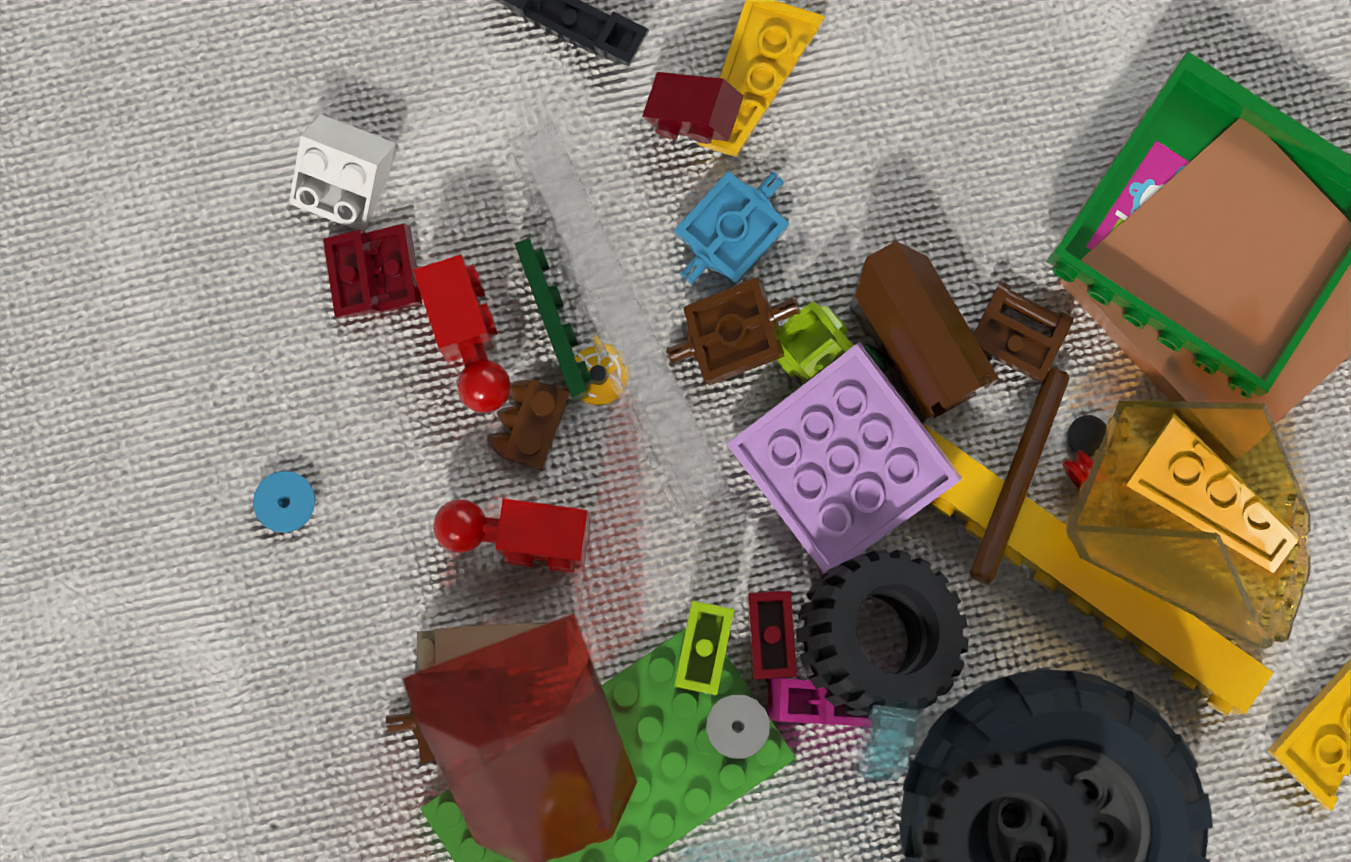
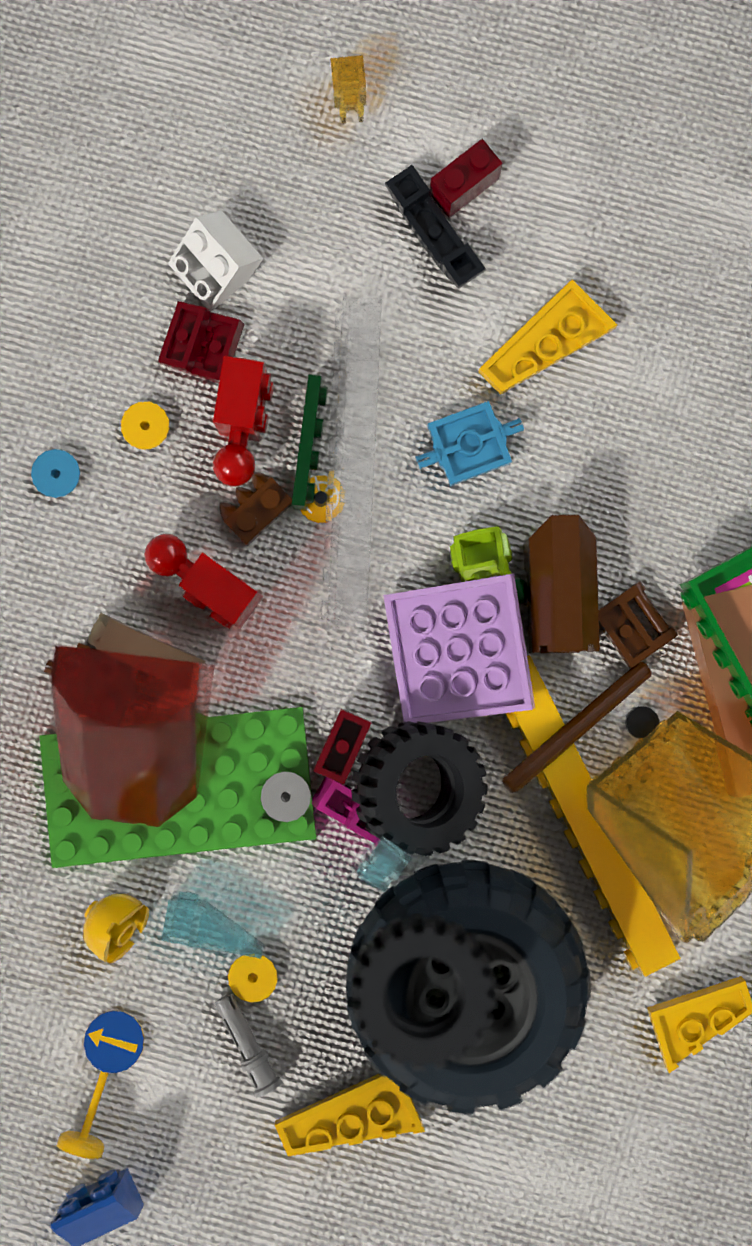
camera: 25 degrees right, 5 degrees up
(357, 395) = (145, 425): none -> yellow piece
(692, 107) = (487, 342): dark red brick -> none
(704, 648) = (288, 731): lime brick -> none
(733, 331) = (430, 518): reddish brown plate -> none
(1078, 468) = (622, 743): red bush -> none
(1207, 493) = (702, 808): yellow wing -> none

